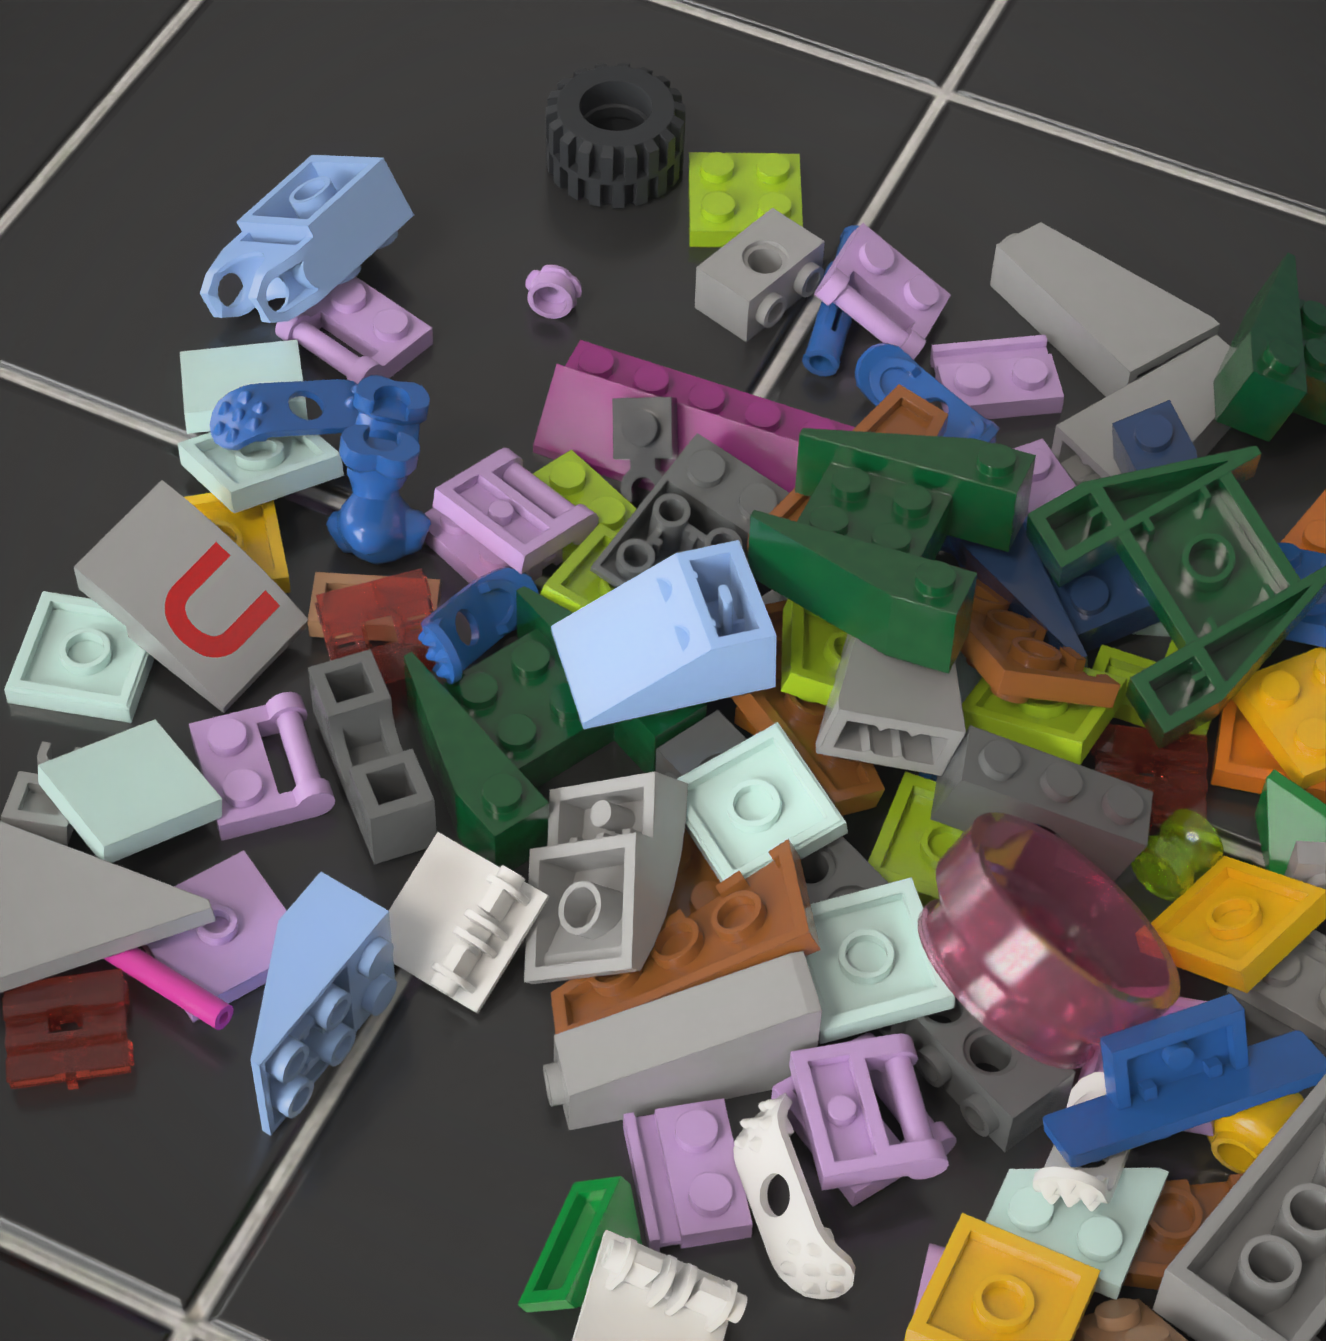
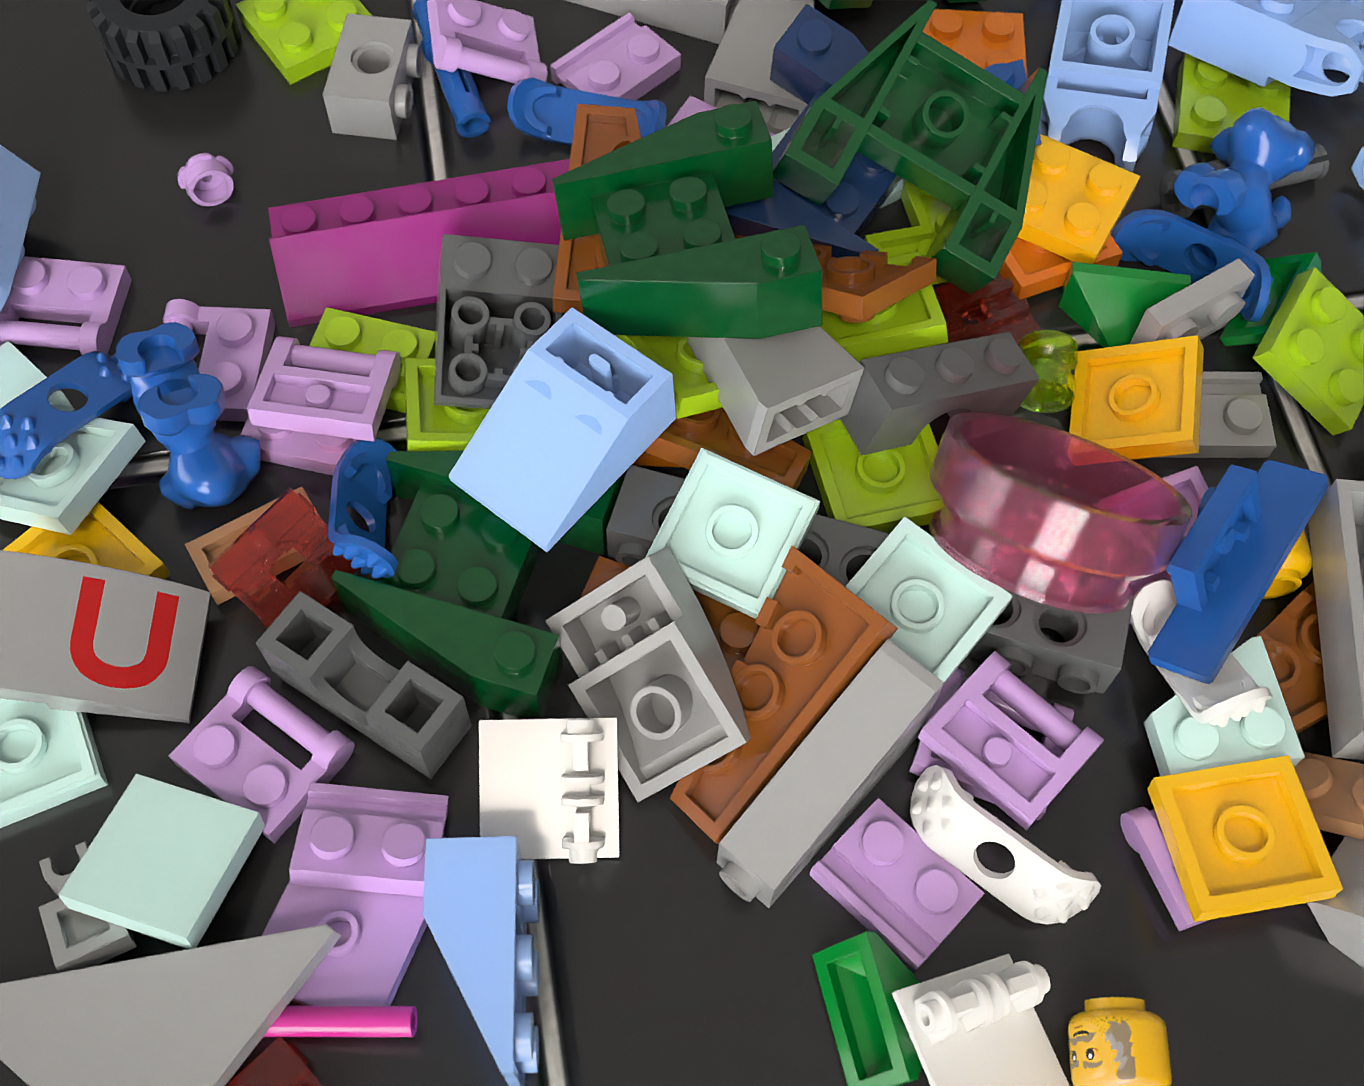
camera: 35 degrees left, 10 degrees up
(279, 859) = (366, 839): none -> lavender plate
(466, 441) = (233, 347): none -> lavender plate
(644, 434) = (387, 261): plate -> none

